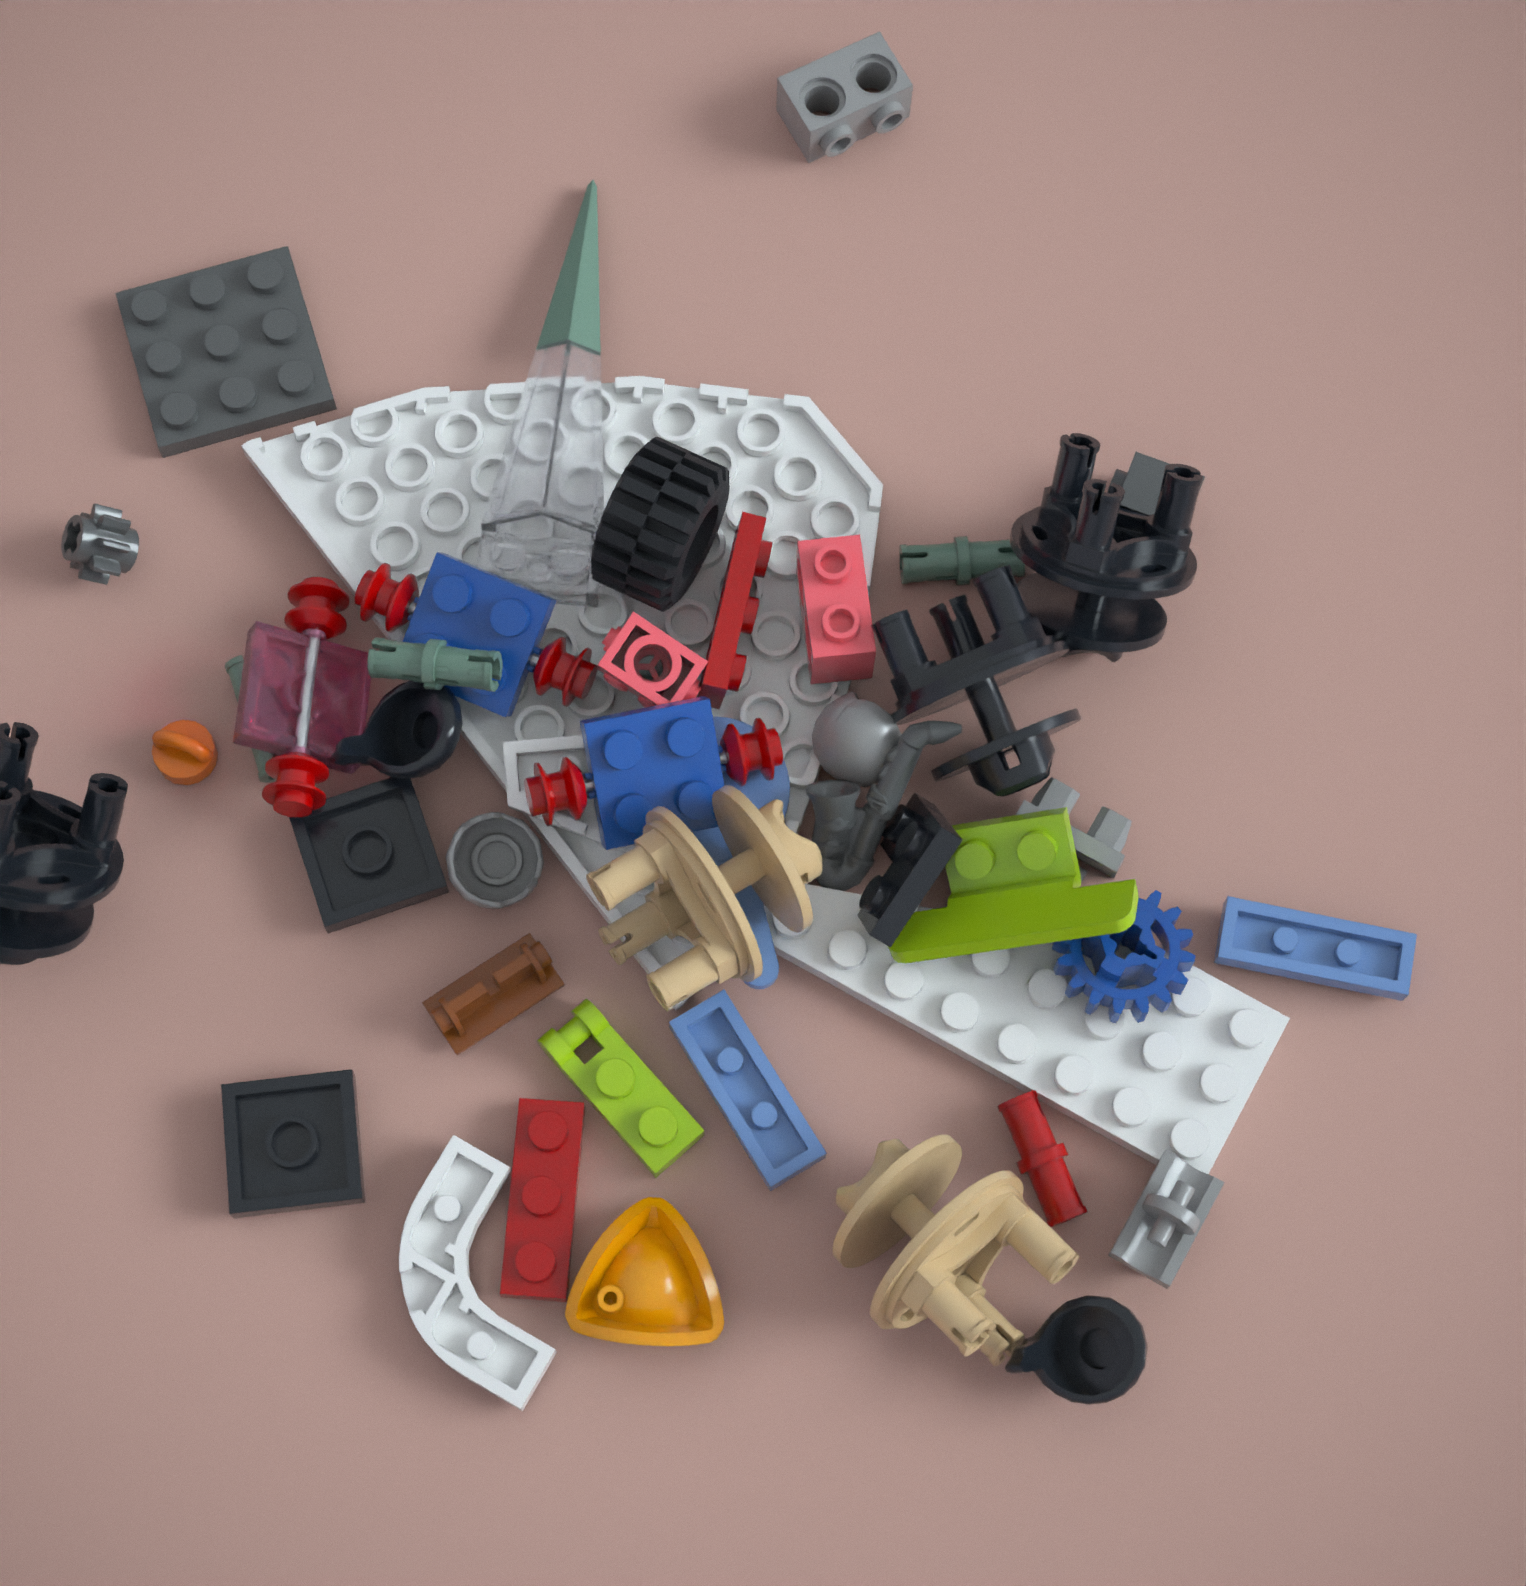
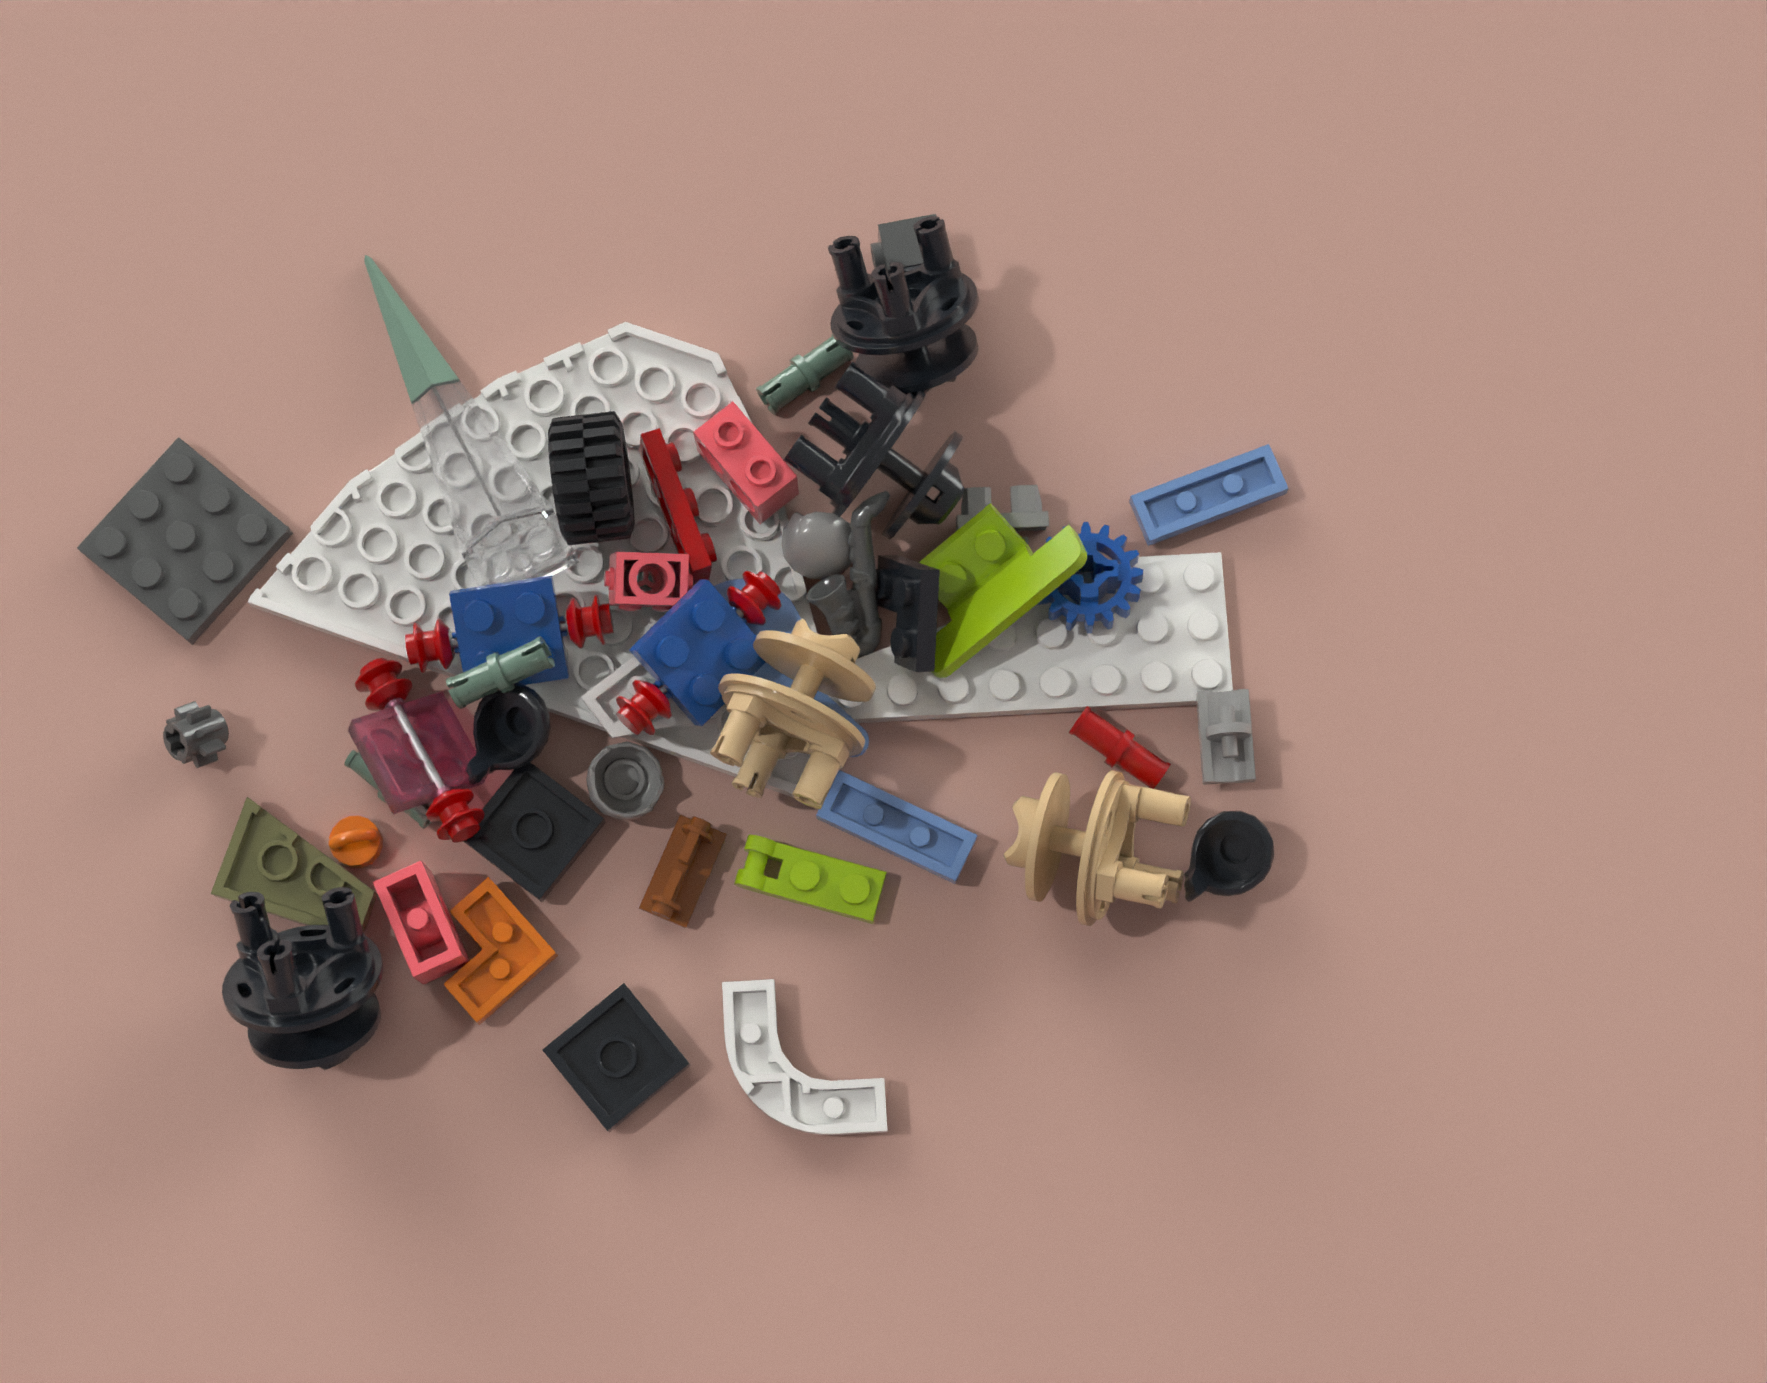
camera: 30 degrees left, 5 degrees up
(92, 729) = (285, 870): none -> olive wing
(188, 873) = (421, 922): none -> coral brick
(256, 967) = (509, 953): none -> orange plate
(542, 1200) = (808, 986): red plate -> none
(647, 1282) = (915, 995): light orange hat -> none
(837, 87) = (496, 83): light grey brick -> none

